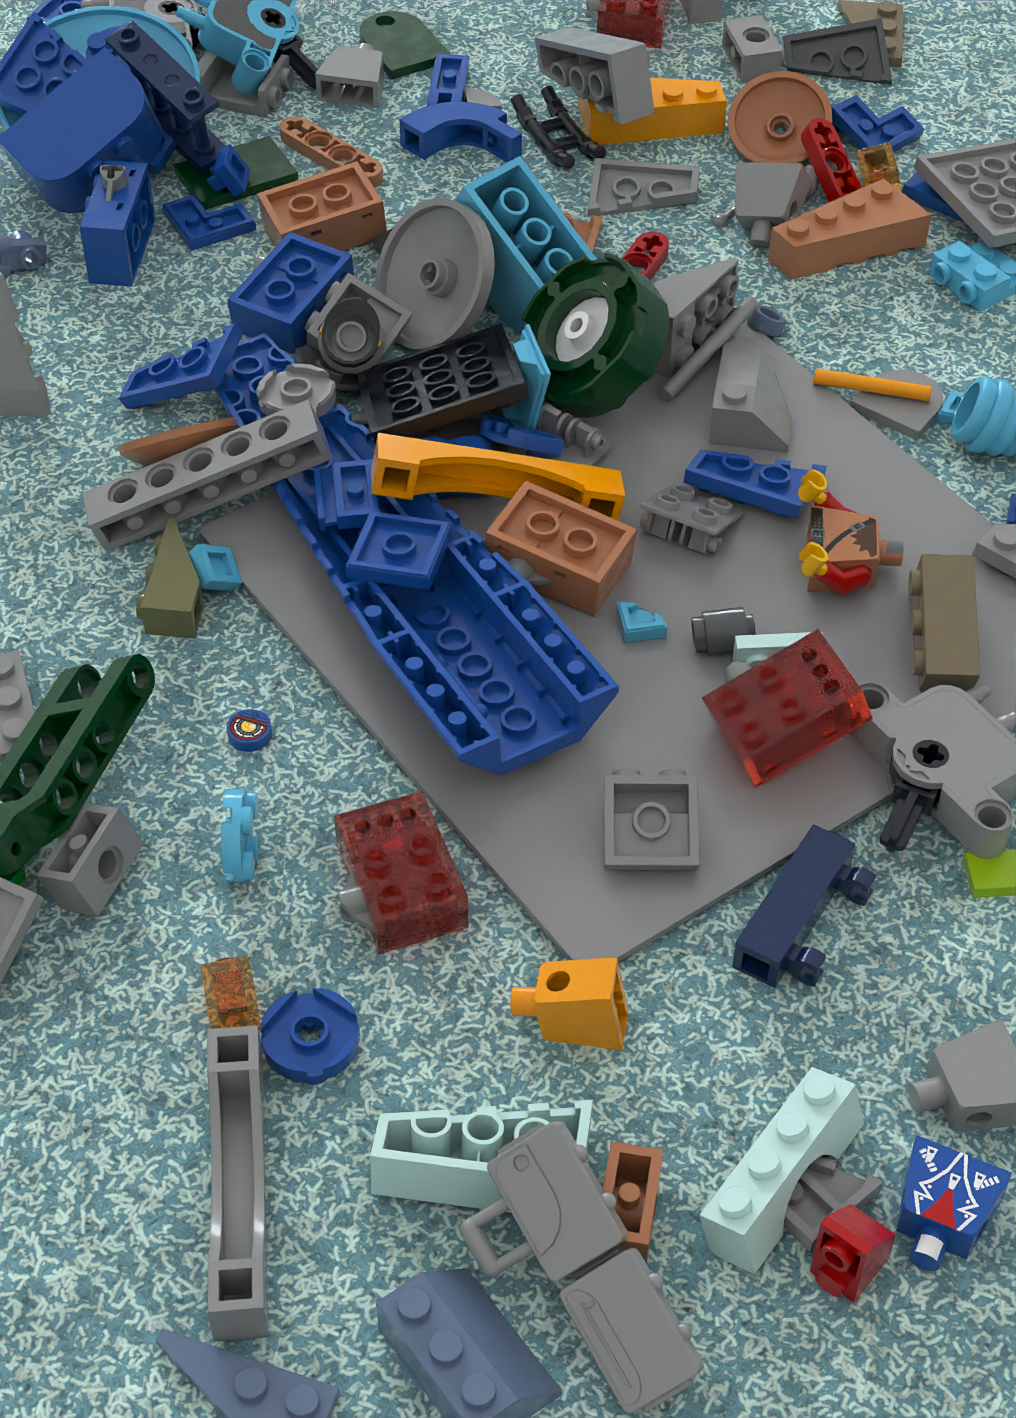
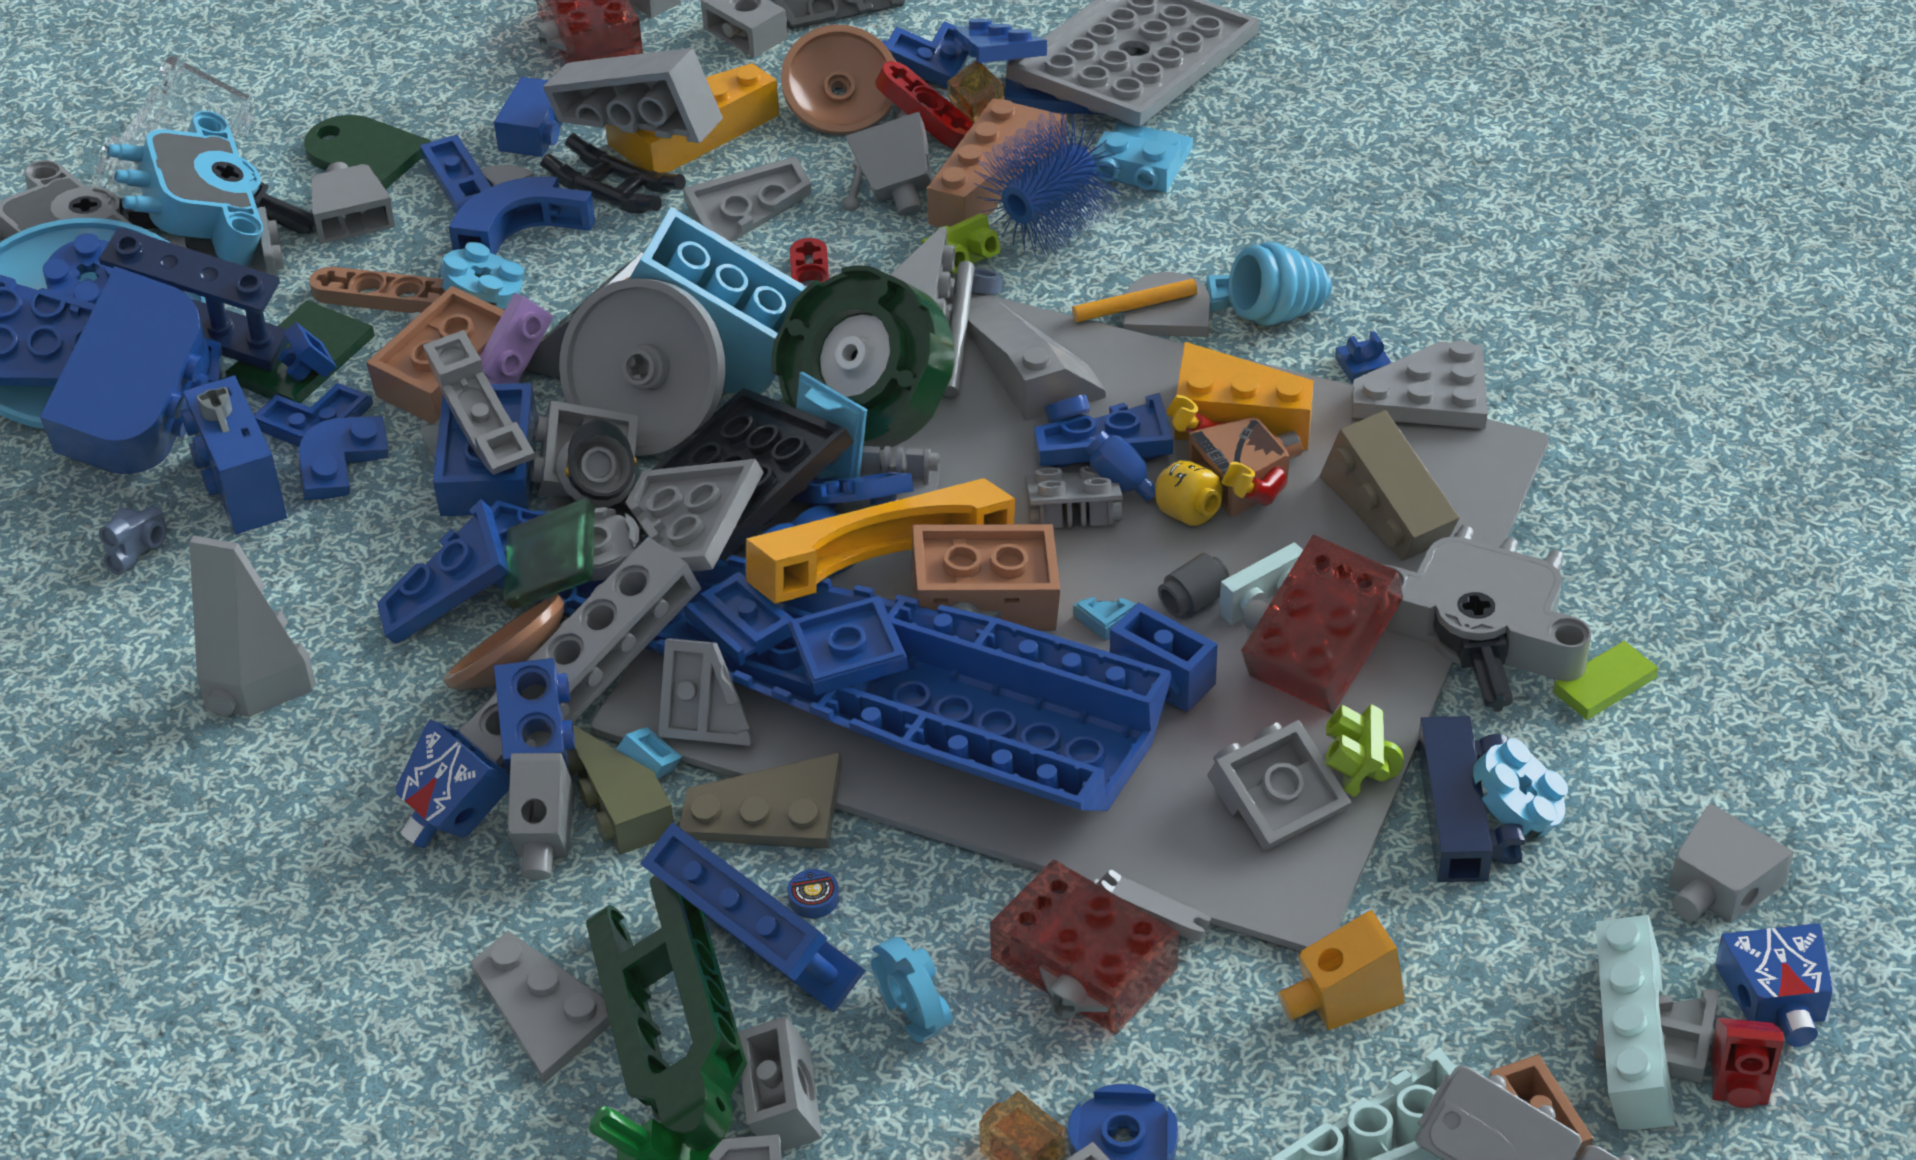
camera: 30 degrees left, 5 degrees down
(56, 522) = (448, 784): none -> blue torso
(100, 572) = (540, 811): none -> light grey torso
(125, 495) = (523, 717): none -> blue brick
(164, 723) = (753, 917): none -> blue fence
(193, 246) = (332, 445): none -> blue plate
(252, 385) = (549, 554): none -> tile
(269, 648) = (767, 807): none -> dark tan wing
(275, 540) = (700, 696): none -> light grey wing
(295, 252) = (475, 404): none -> light grey slope
(367, 221) = (514, 340): none -> lavender plate
(376, 397) = (694, 507): none -> light grey plate
(397, 166) = (481, 274): none -> medium azure plate
(479, 867) = (1173, 913): none -> light grey piece
(519, 67) = (527, 120): none -> blue brick
(644, 675) = (1170, 646): none -> blue brick
(723, 832) = (1361, 748): none -> lime hips
(741, 446) = (1067, 408): none -> blue tile
(741, 508) = (1120, 463): none -> blue plant
(770, 284) = (972, 240): none -> lime hips
(776, 552) = (1188, 493): none -> yellow head
(866, 260) = (1049, 183): none -> blue piece
(872, 917) = (1521, 788): none -> medium azure plate
(878, 485) = (1239, 389): none -> light orange wedge
(920, 134) = (998, 41): none -> blue wing

